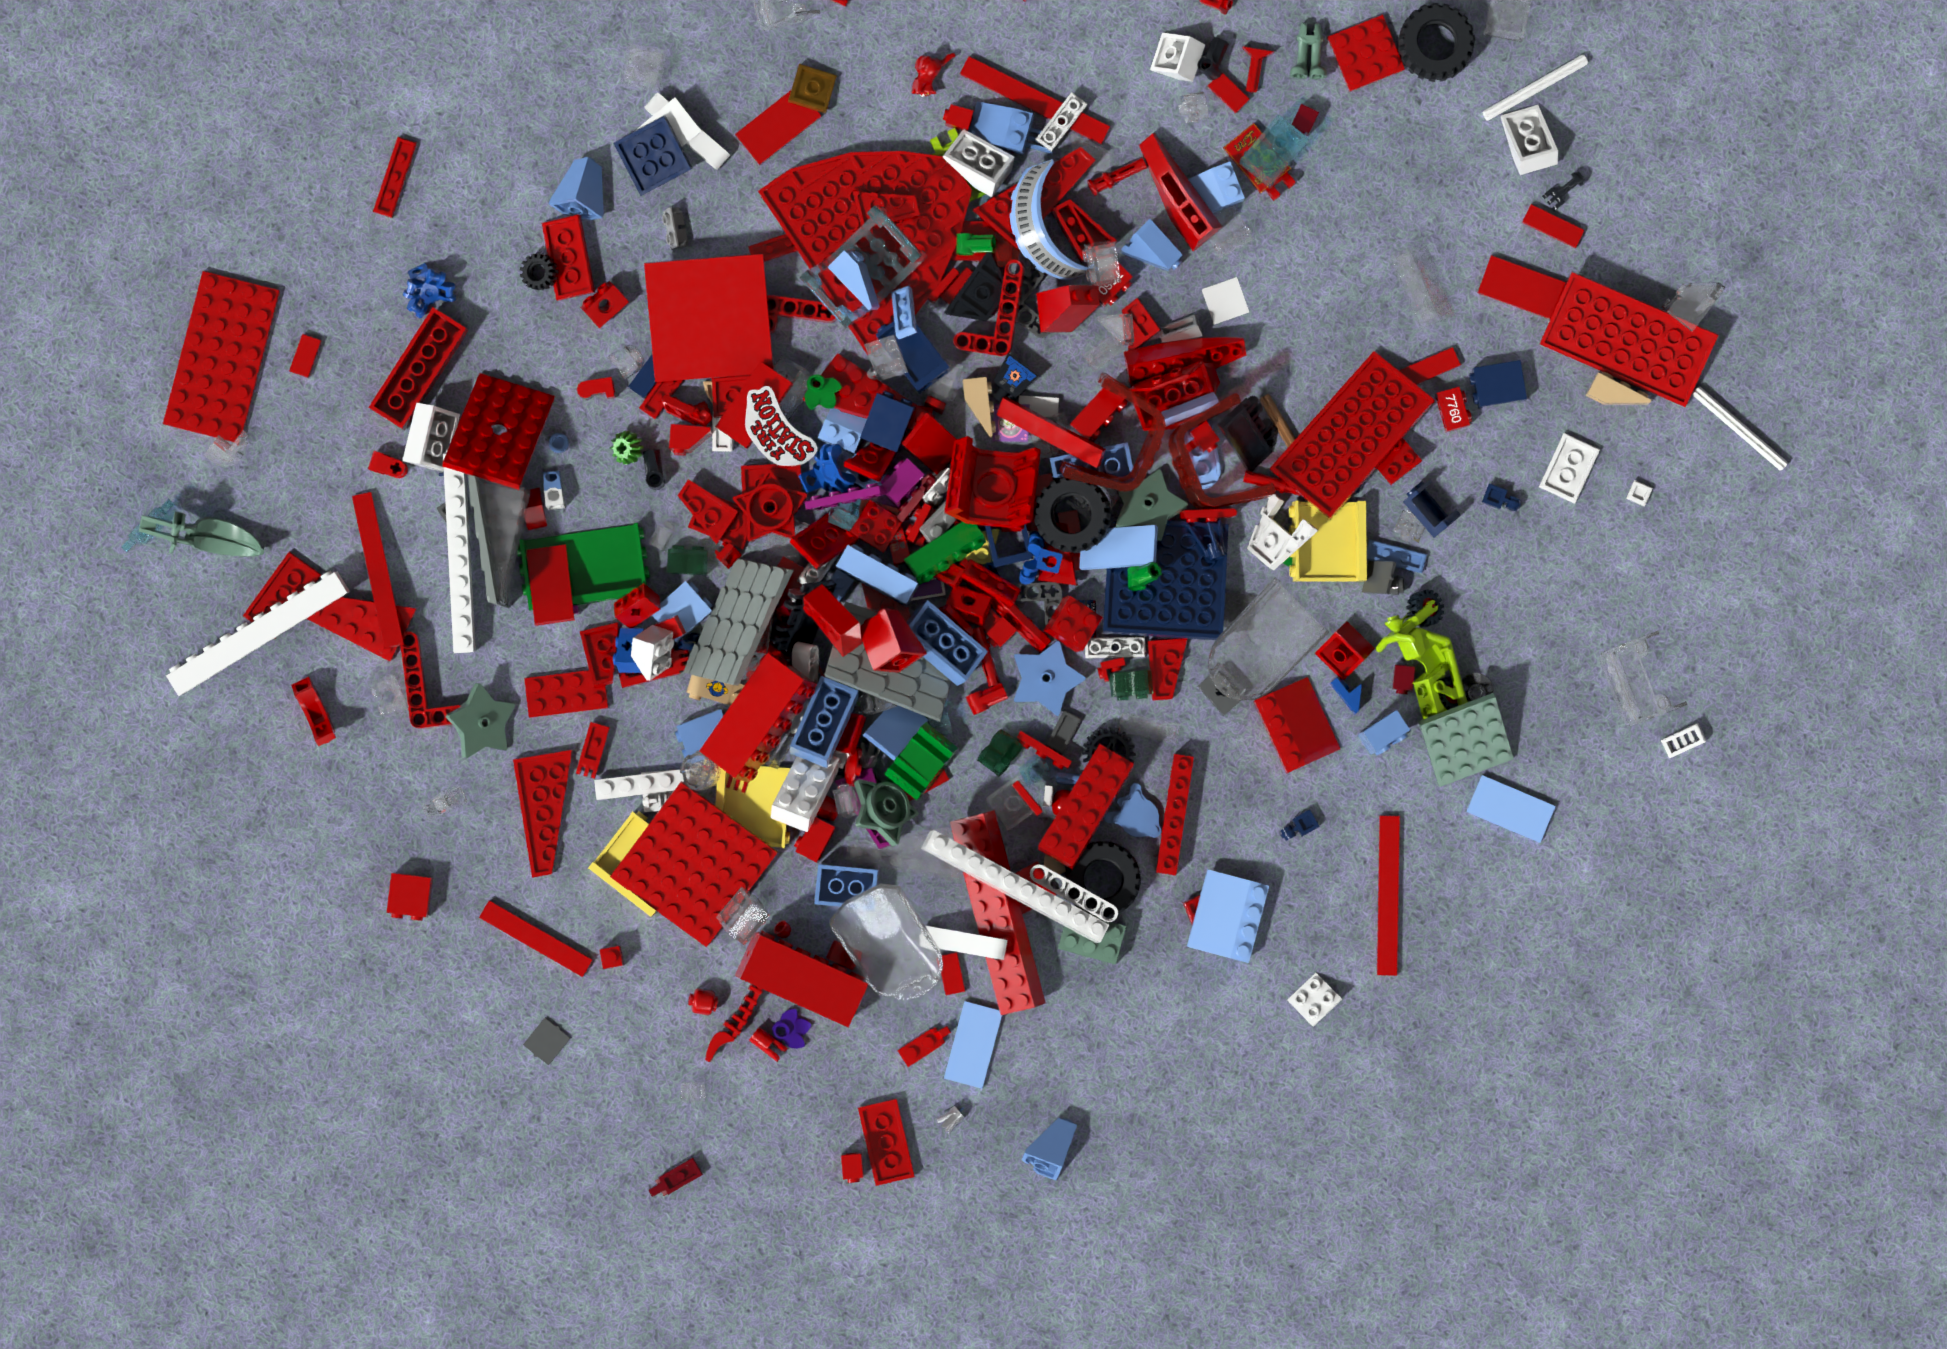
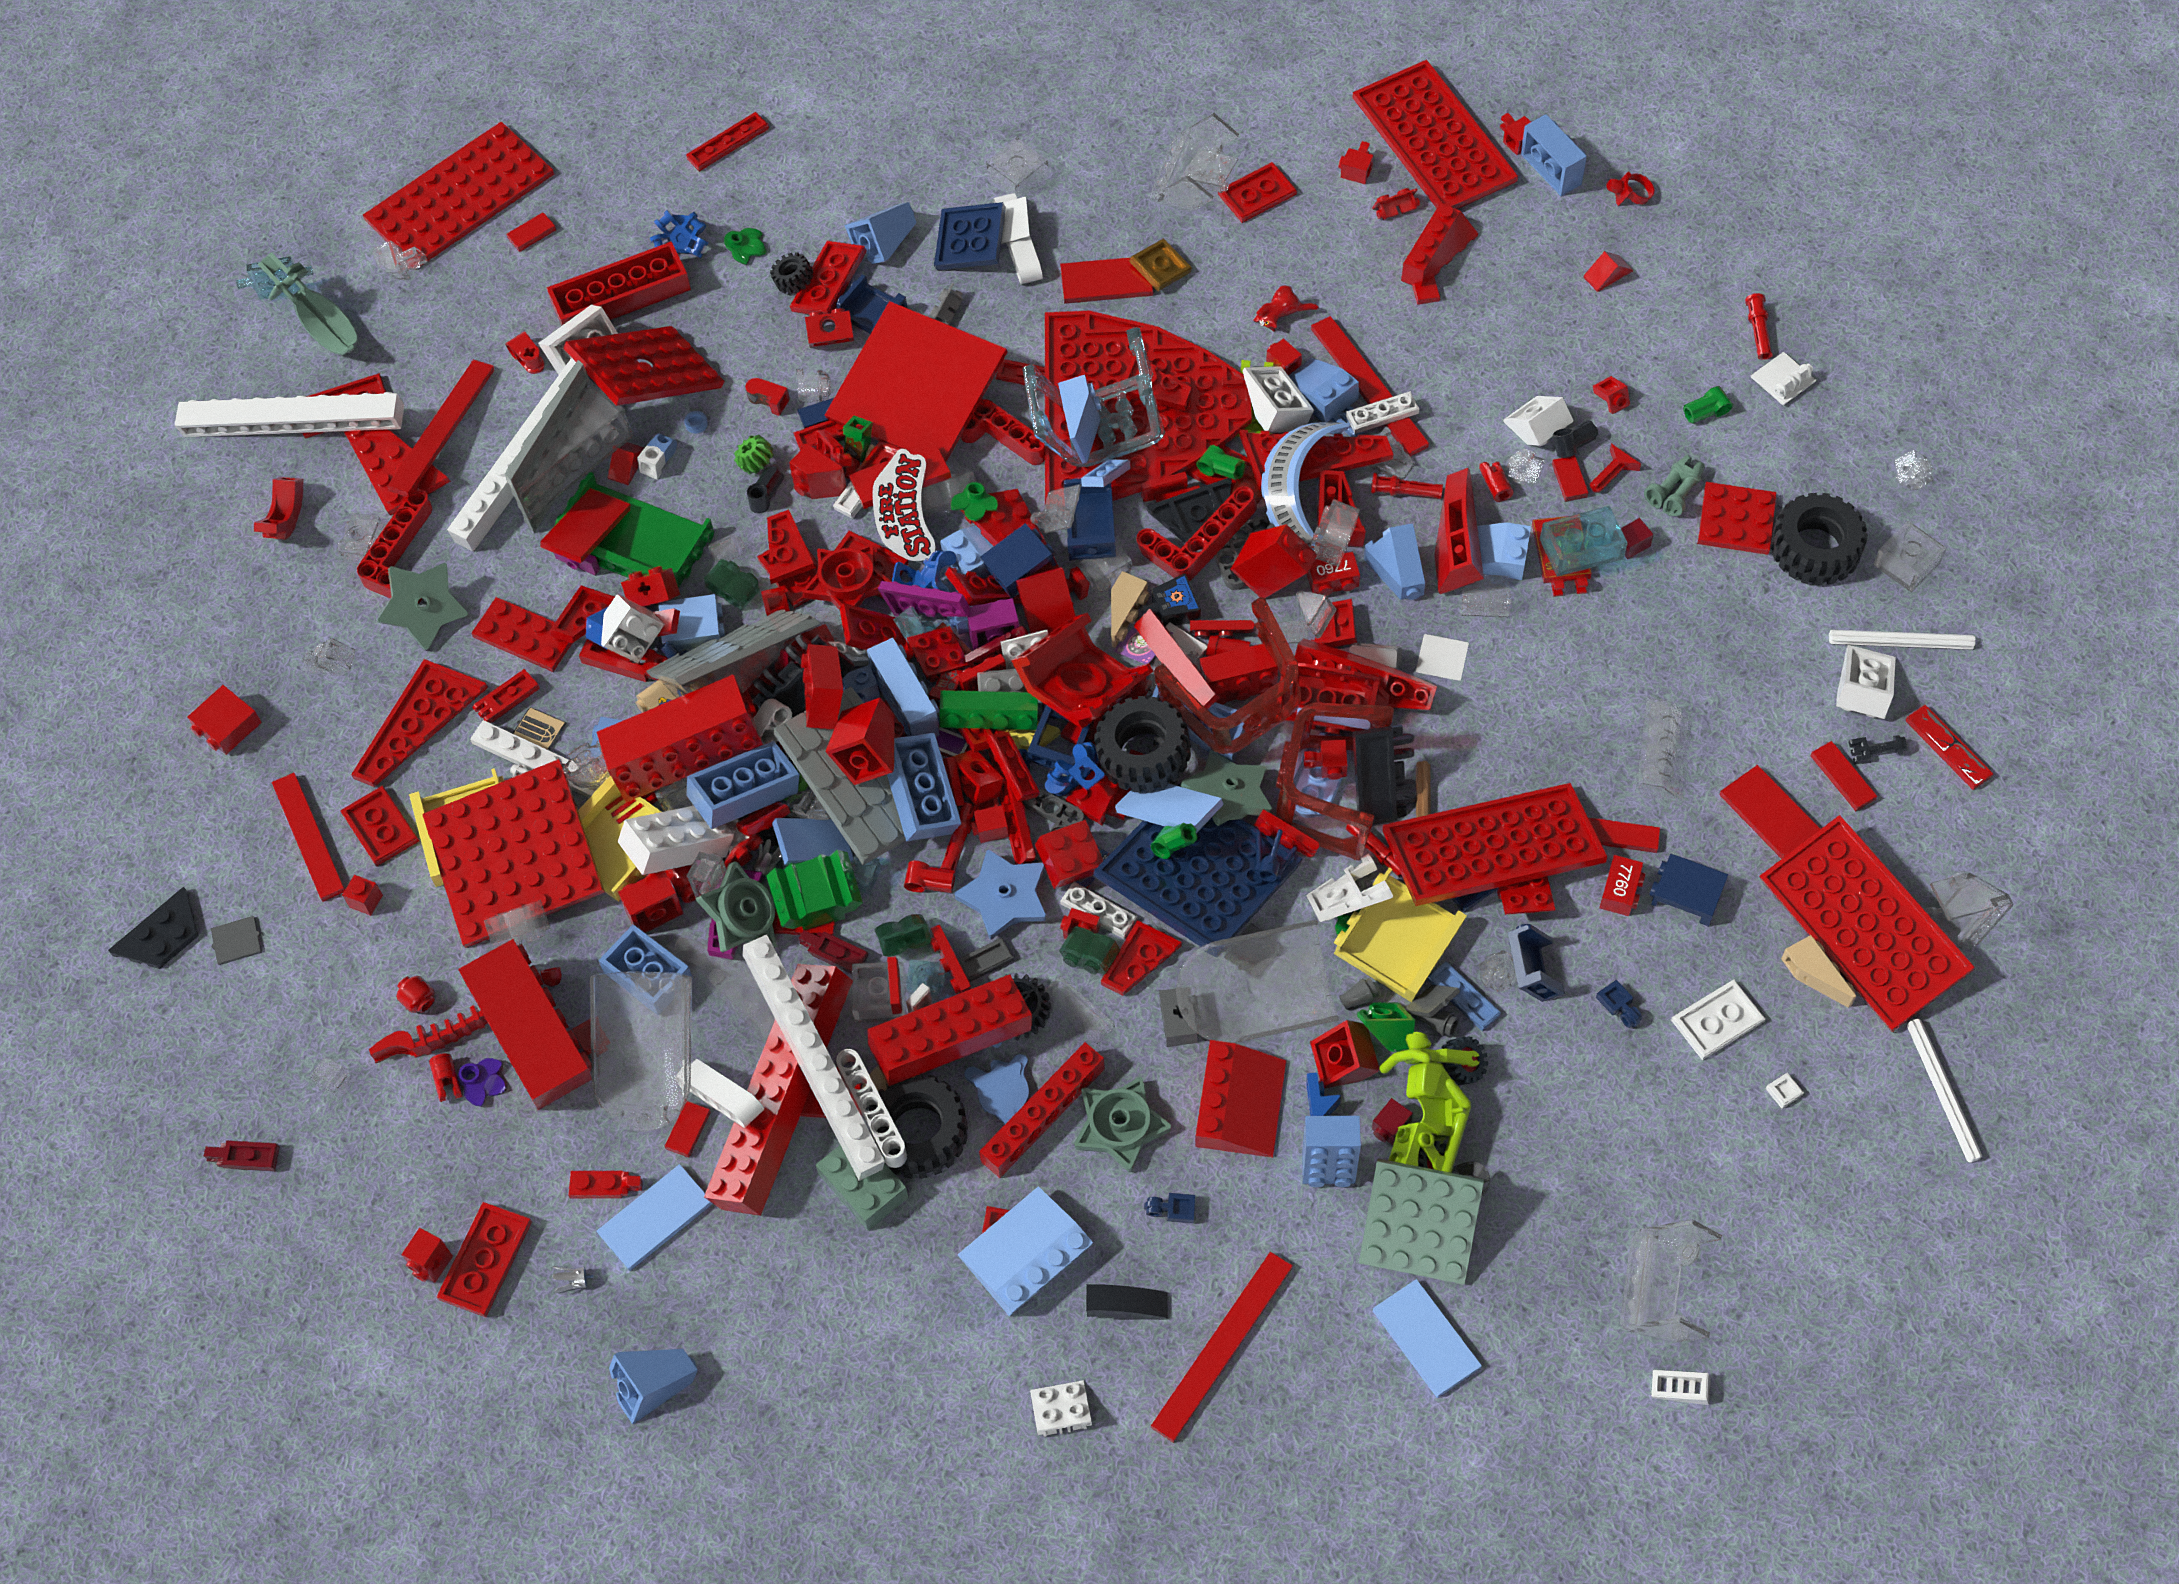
camera: 35 degrees right, 25 degrees down
(483, 264) = (746, 244): none -> green plate
(492, 1070) = (160, 934): none -> black wing
(578, 899) = (379, 826): none -> red tile
(619, 263) = (866, 303): none -> dark blue panel
(632, 759) = (539, 728): none -> piece
(695, 389) = (857, 440): none -> green leg
(960, 791) = (833, 950): none -> dark red hinge
(1059, 377) = (1223, 627): none -> red hinge
(1077, 391) = (1221, 645): none -> red piece
(1181, 131) = (1496, 481): none -> red hinge
(1228, 774) = (1119, 1140): none -> sand green plate
(1312, 907) = (1126, 1302): none -> black slope
(1327, 599) = (1359, 994): none -> dark grey cone
(1360, 612) = (1389, 1024): none -> green slope
(1611, 157) = (1949, 747): none -> red tile

